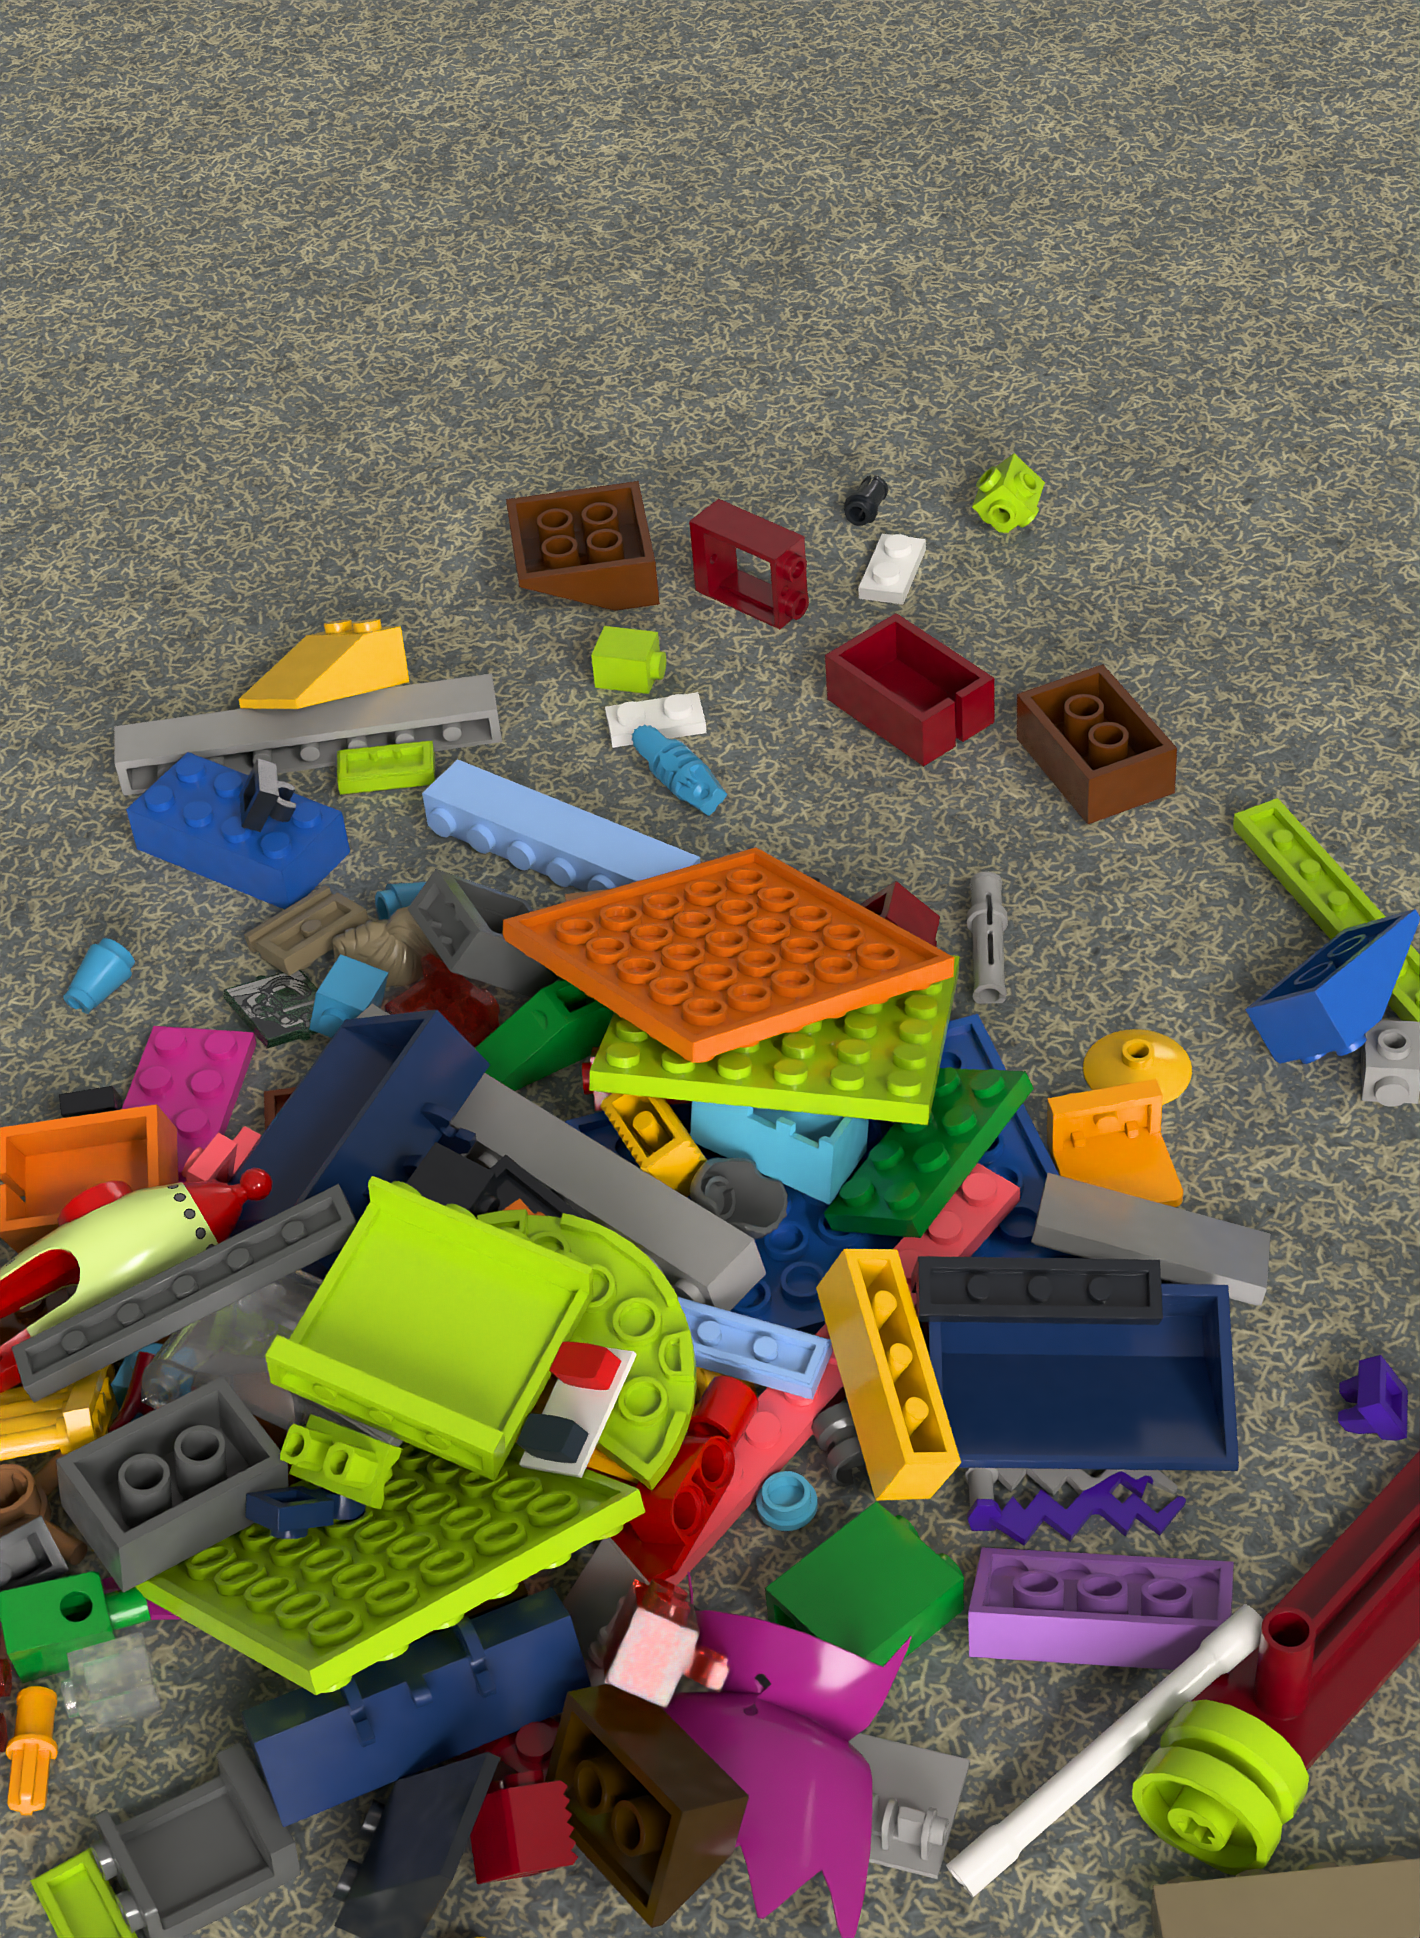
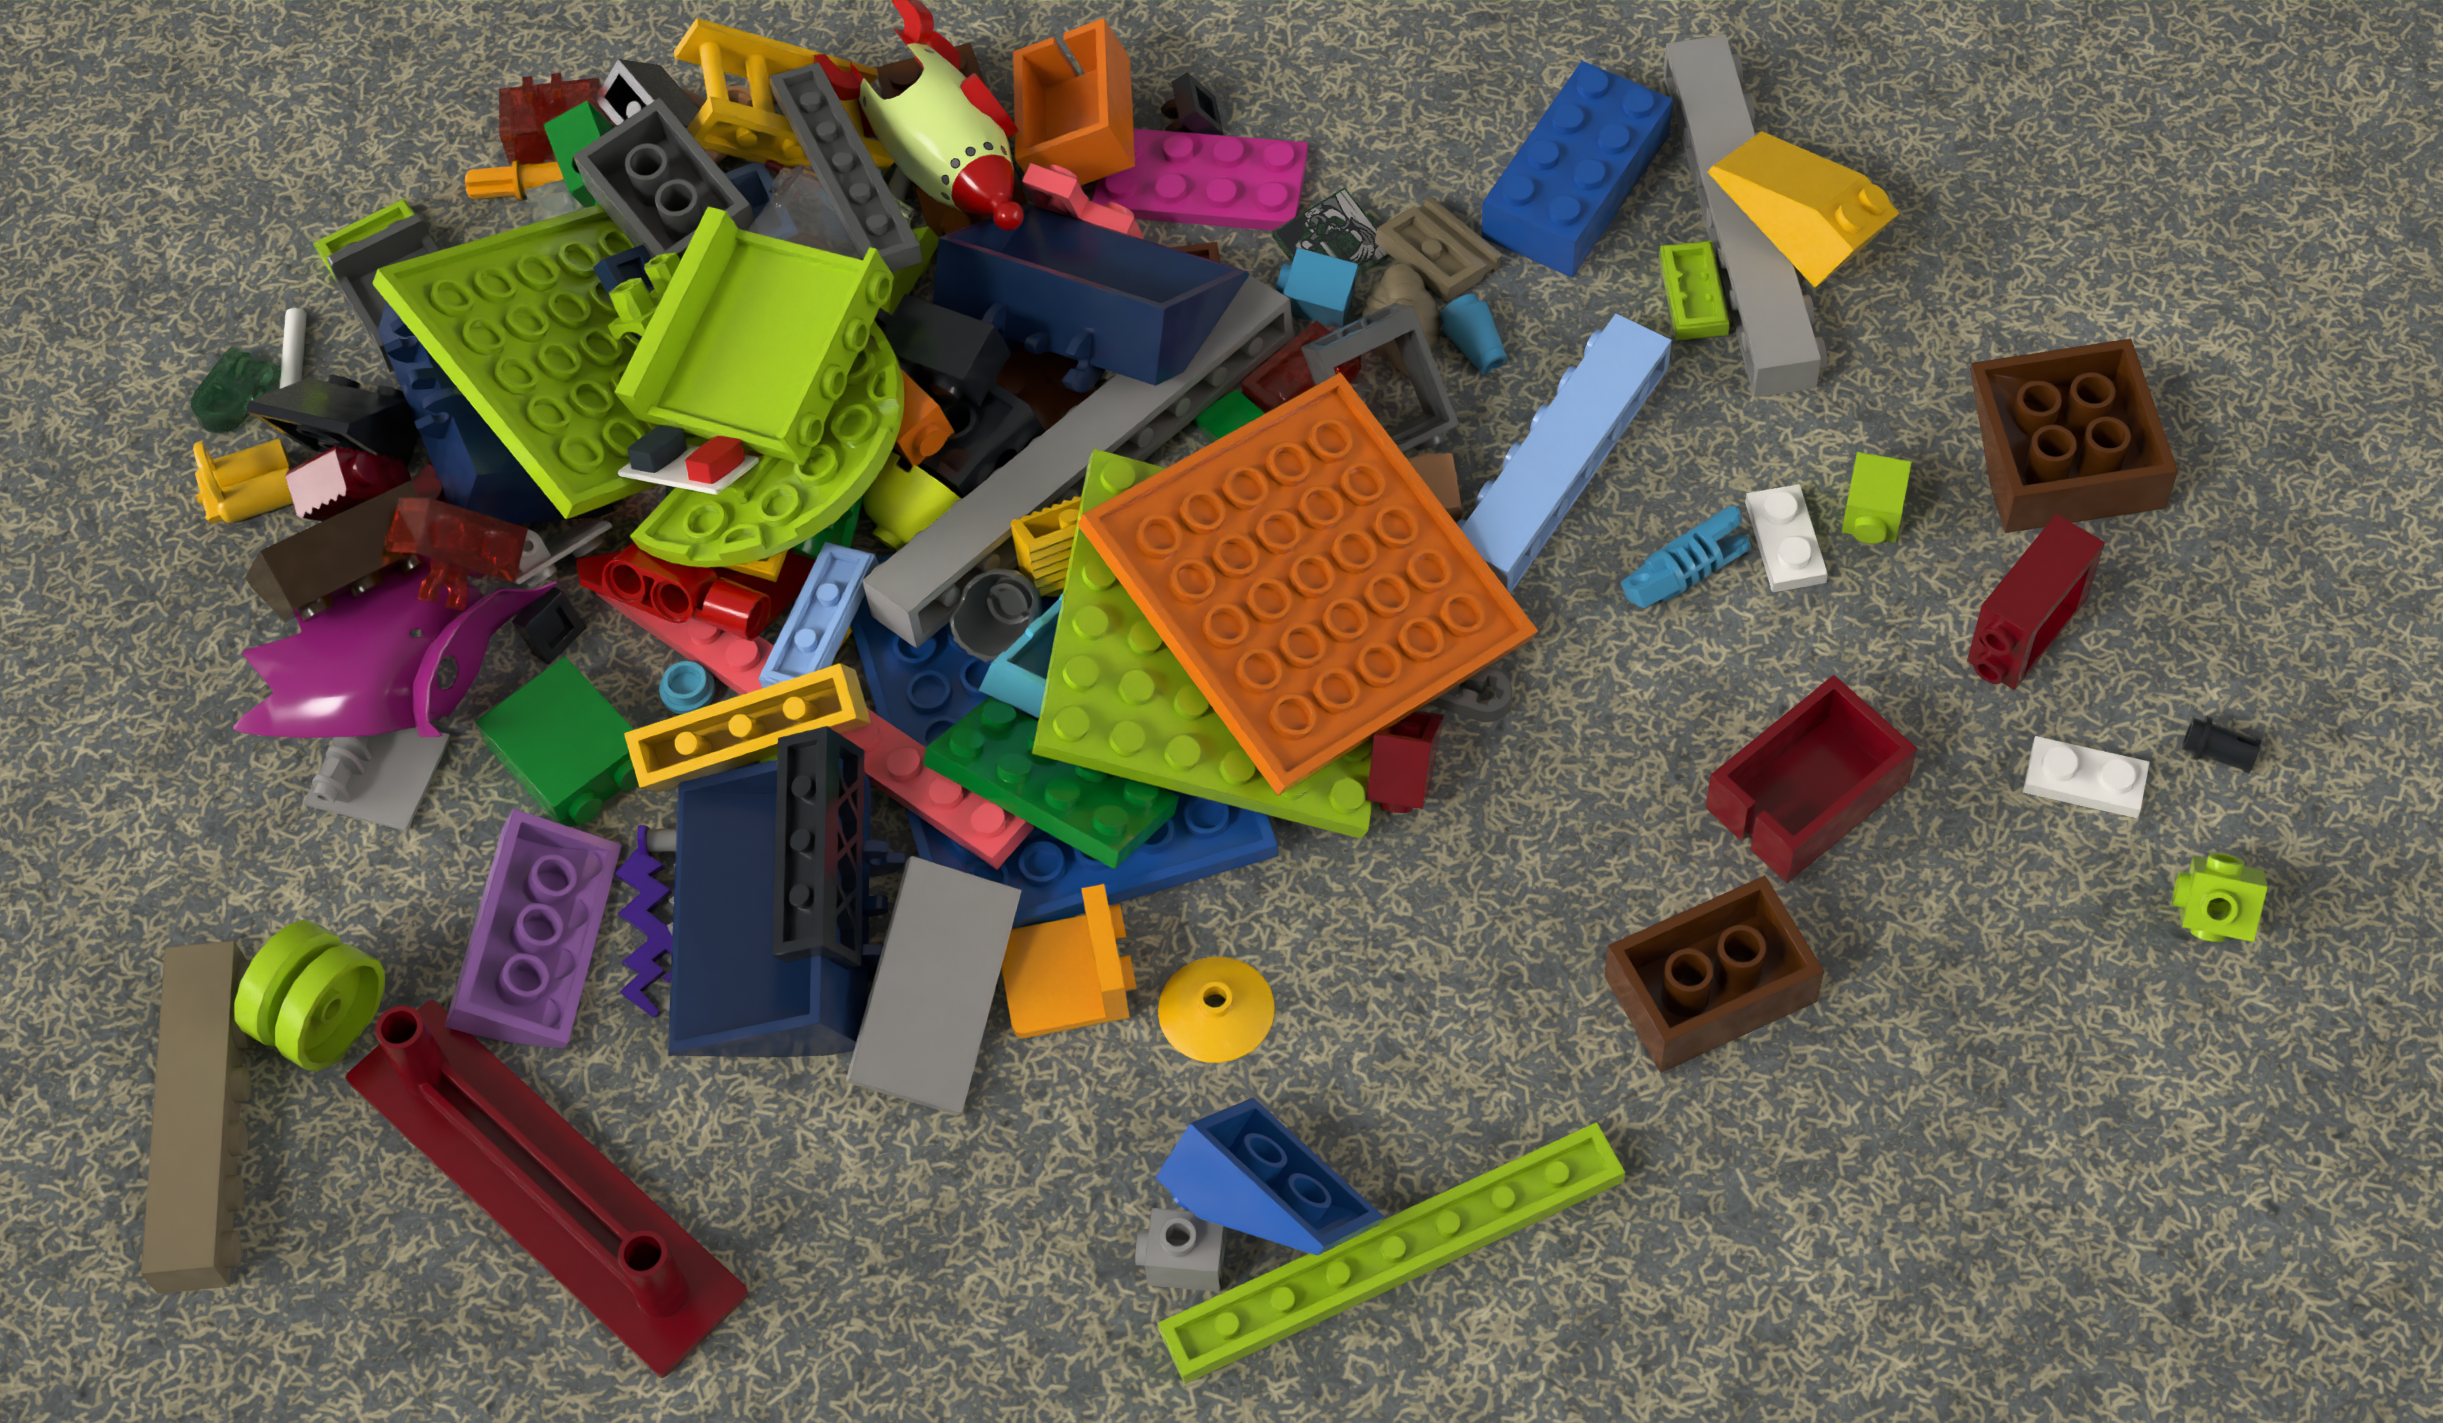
camera: 90 degrees right, 15 degrees up
(99, 975) = (1379, 89): dark azure cone -> none
(265, 797) = (1561, 156): black tile -> none
(987, 905) = (1419, 863): light grey pin -> none
(1004, 1841) = (423, 991): white piece -> none
(1379, 1401) = (731, 1188): dark purple tile -> none

